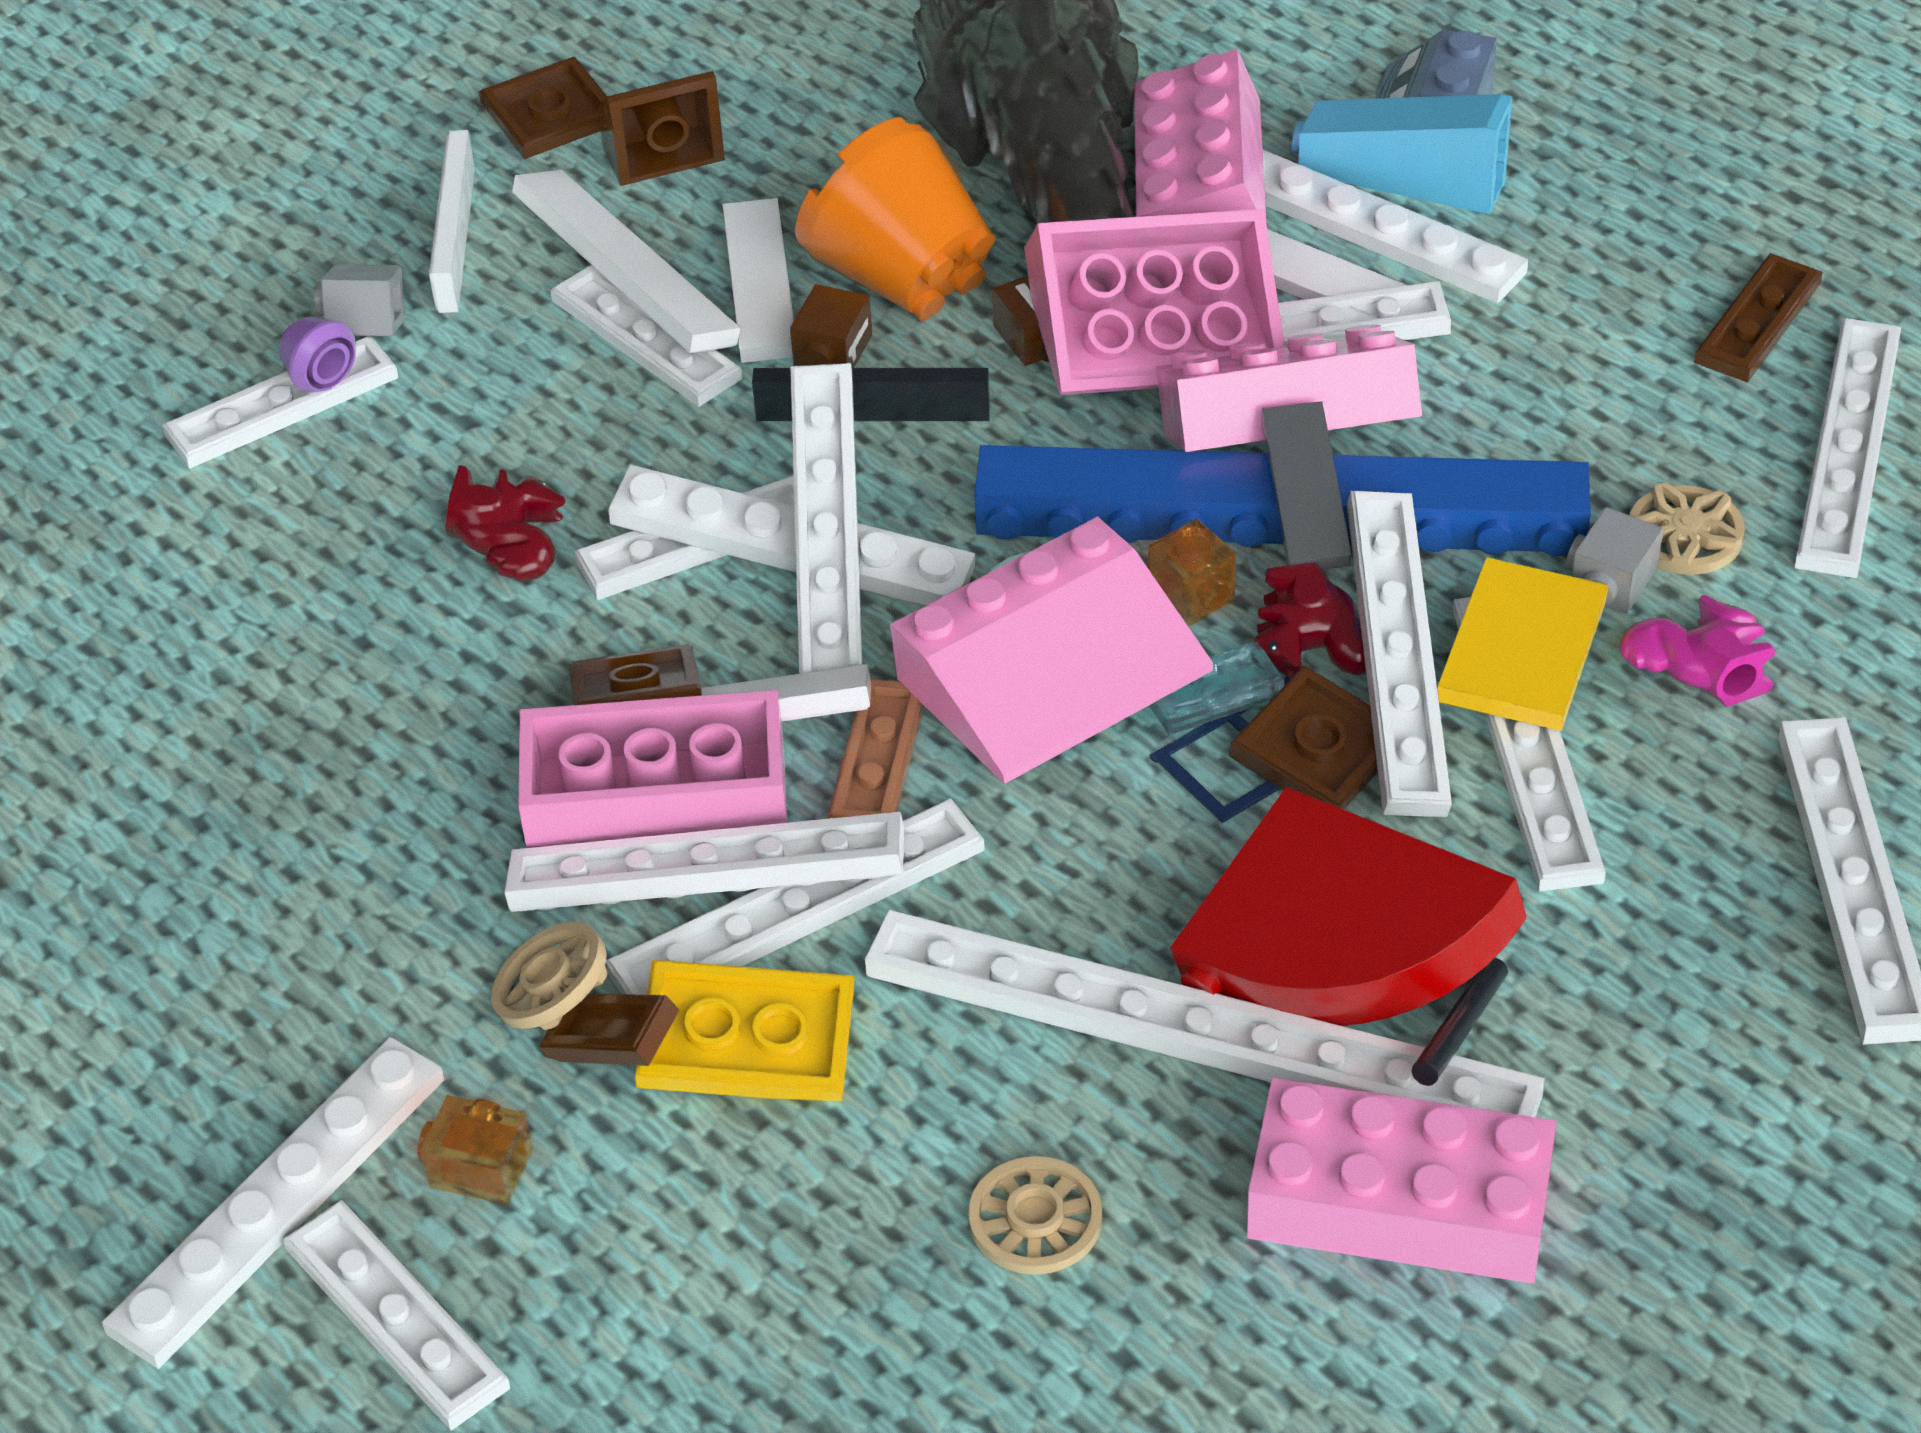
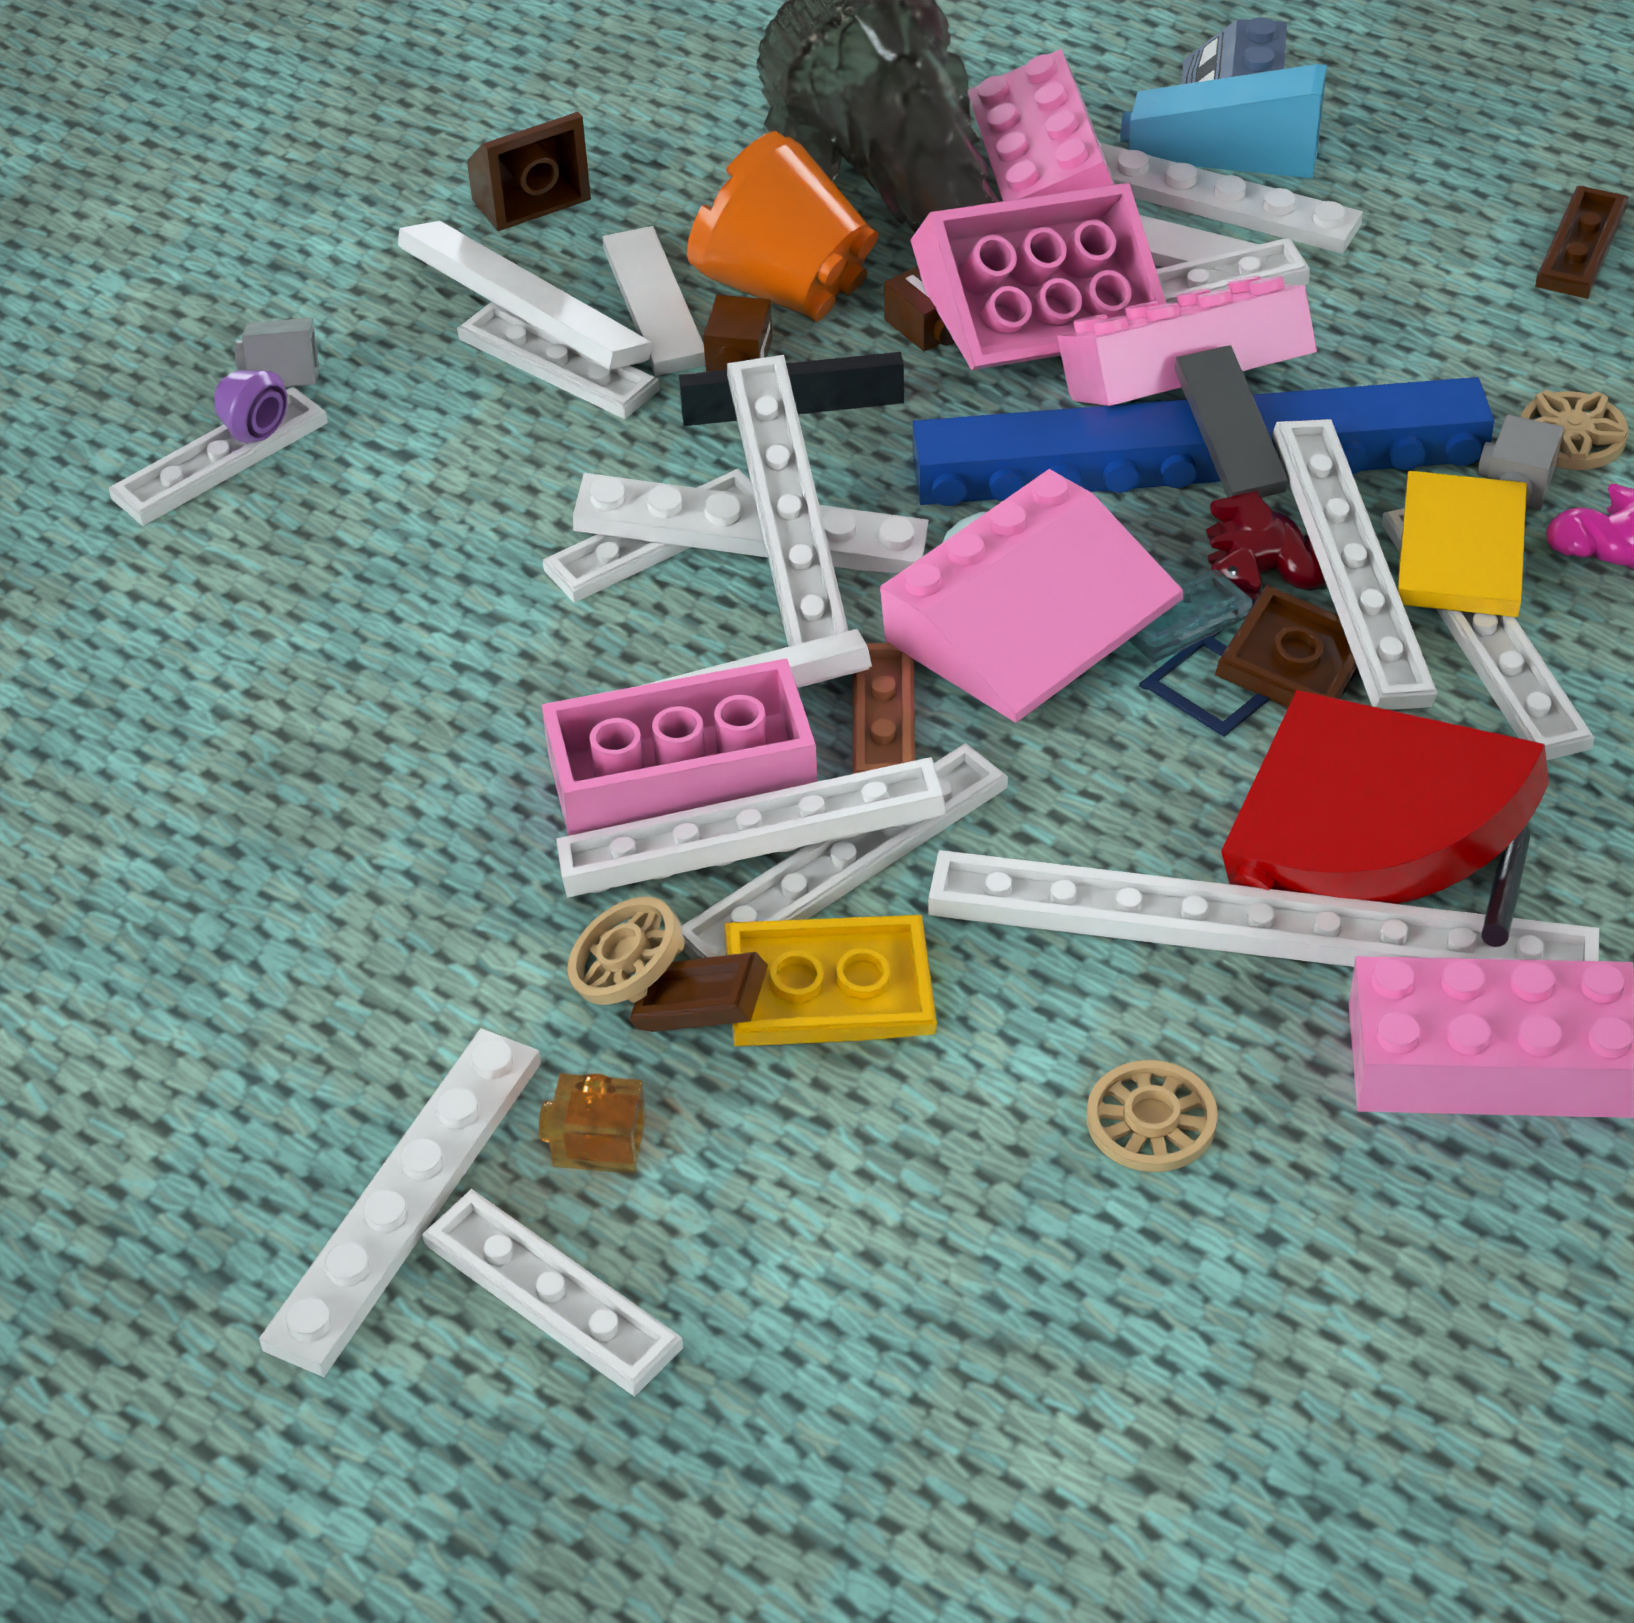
camera: 10 degrees left, 0 degrees up
(452, 222) = (348, 276): white tile -> none
(497, 522) = (468, 542): dark red animal -> none
(545, 107) = (410, 168): reddish brown tile -> none
(636, 676) = (635, 665): reddish brown tile -> none
(1194, 570) = (1145, 507): clear orange brick -> none

